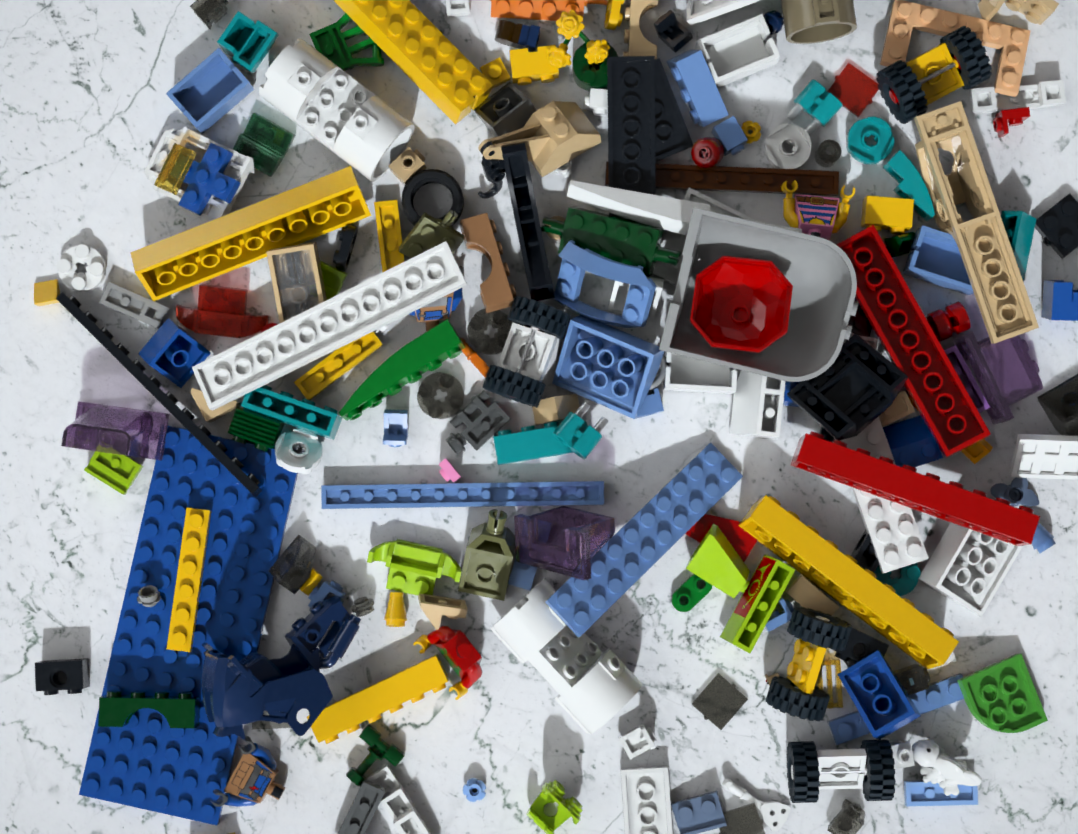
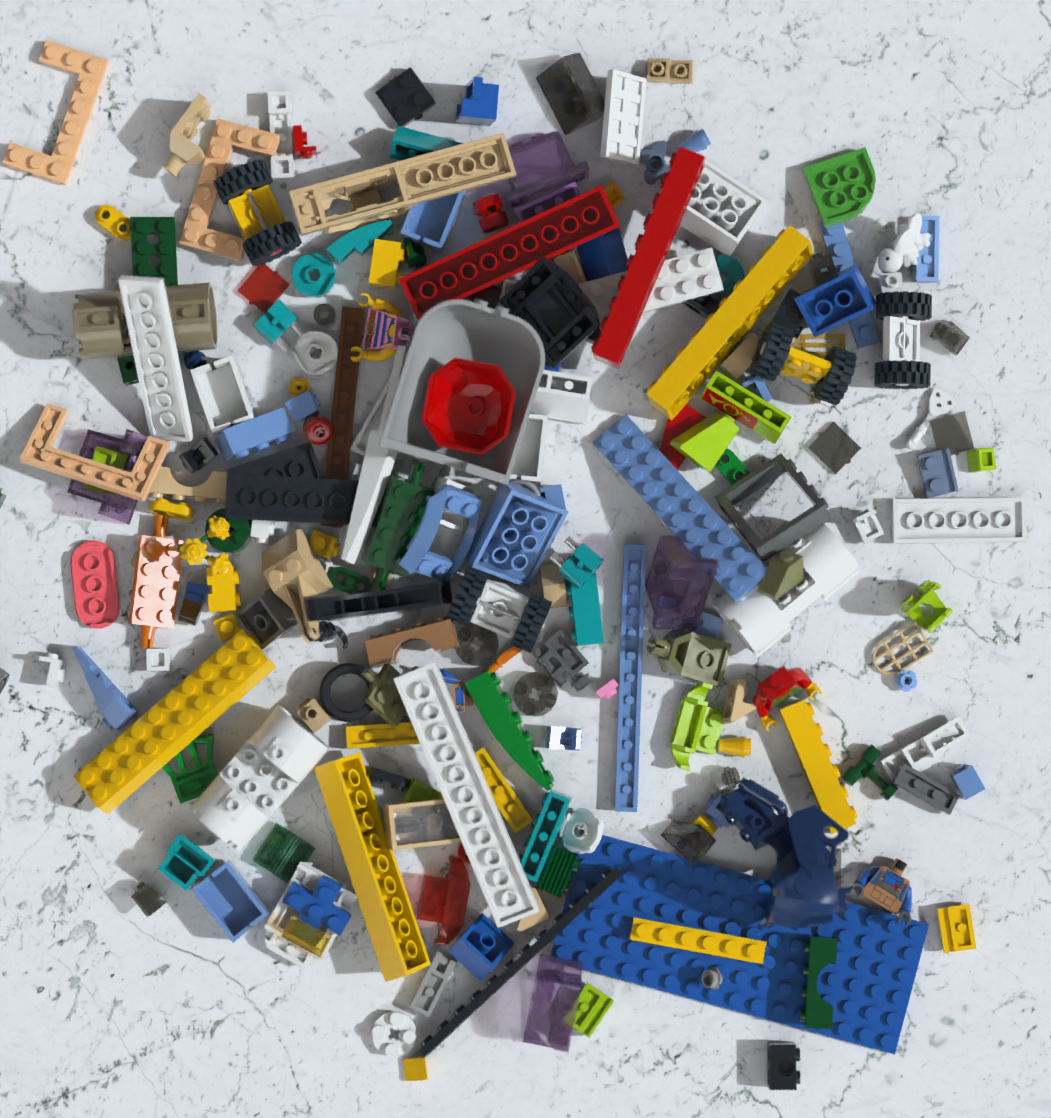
camera: 95 degrees left, 0 degrees up
(506, 792) = (910, 651): none -> tan window
(549, 196) = (350, 581): none -> dark green plate
(577, 650) = (782, 574): none -> olive slope
(586, 167) = (324, 545): none -> yellow bracket
(626, 658) = (789, 532): none -> dark grey window

